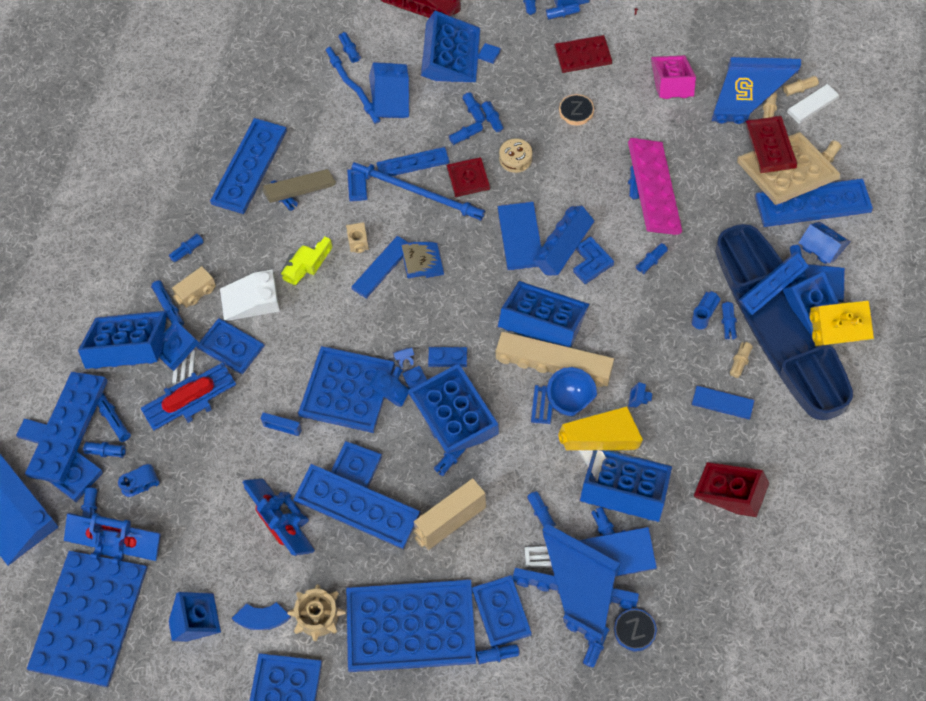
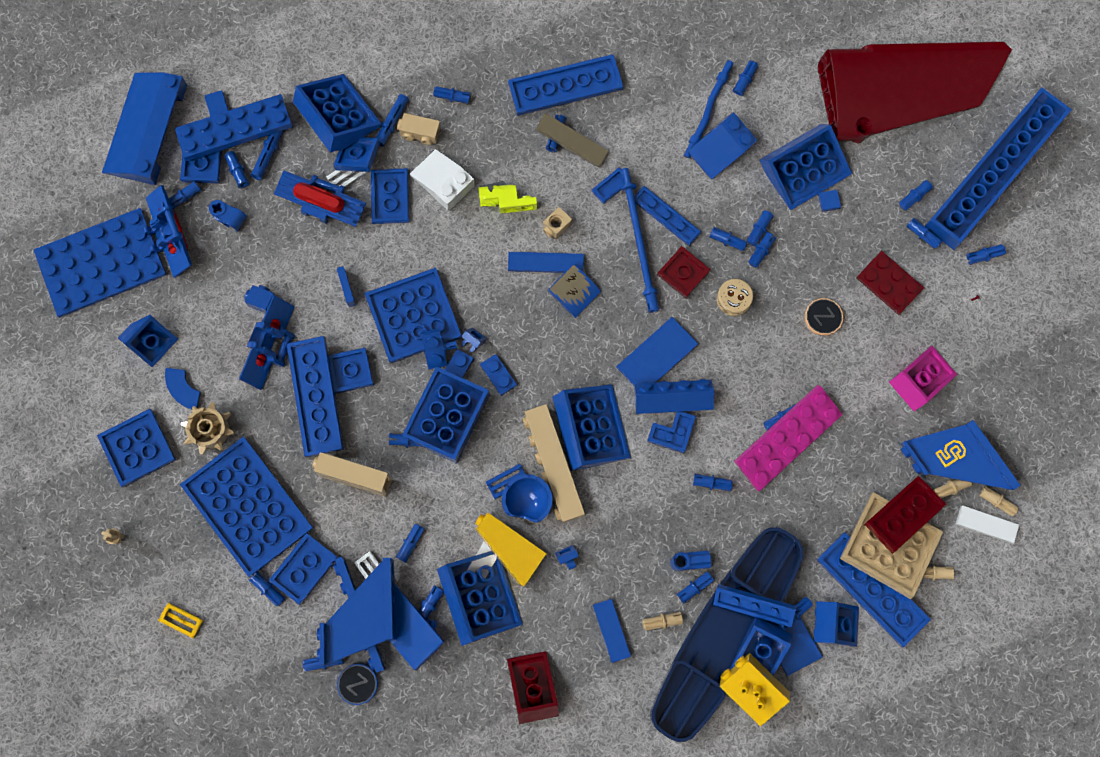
camera: 50 degrees right, 15 degrees up
(235, 499) = (258, 298): none -> blue brick

